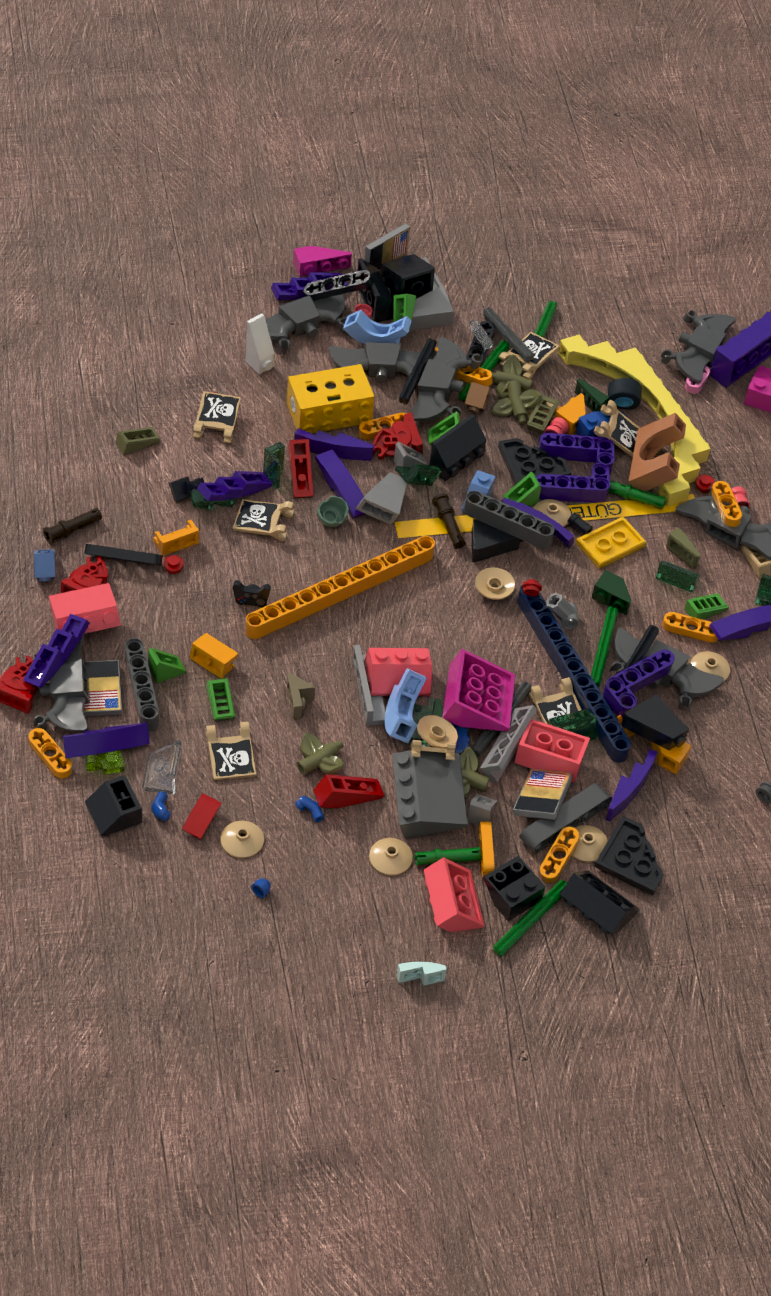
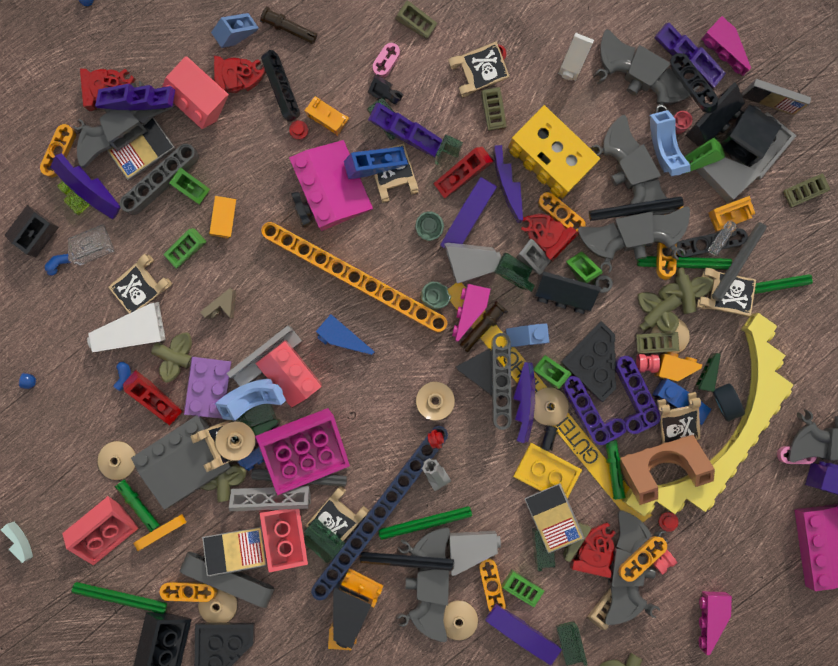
camera: 65 degrees right, 35 degrees up
(155, 476) = (389, 63): none -> bright pink beam
(201, 816) = (63, 299): red slope -> none
(240, 846) = (76, 340): tan dish -> none
(246, 522) = (374, 161): none -> blue slope
(247, 422) = (490, 93): none -> olive slope
(249, 563) = (327, 186): none -> dark pink slope
(271, 773) = (130, 330): none -> white slope
(367, 742) = (206, 386): none -> medium lavender plate
(388, 621) = (337, 334): none -> blue slope
(398, 537) = (435, 296): none -> sand green hair
(427, 519) = (474, 303): none -> dark pink slope
(461, 324) = (736, 211): none -> light orange hinge
(476, 271) = (818, 184): none -> olive slope
(477, 397) = (641, 275): medium nougat brick -> none
(481, 809) = (197, 509): light grey slope -> none
(514, 888) = (130, 575): black slope -> none
(612, 592) = (487, 503): dark green slope -> none
(630, 787) = (282, 615): dark purple slope -> none
(648, 612) = (472, 548): none -> light grey slope
(650, 546) = (554, 518): none -> tile
(657, 664) = (390, 579): dark purple beam -> none
(706, 540) = (593, 554): none -> red piece

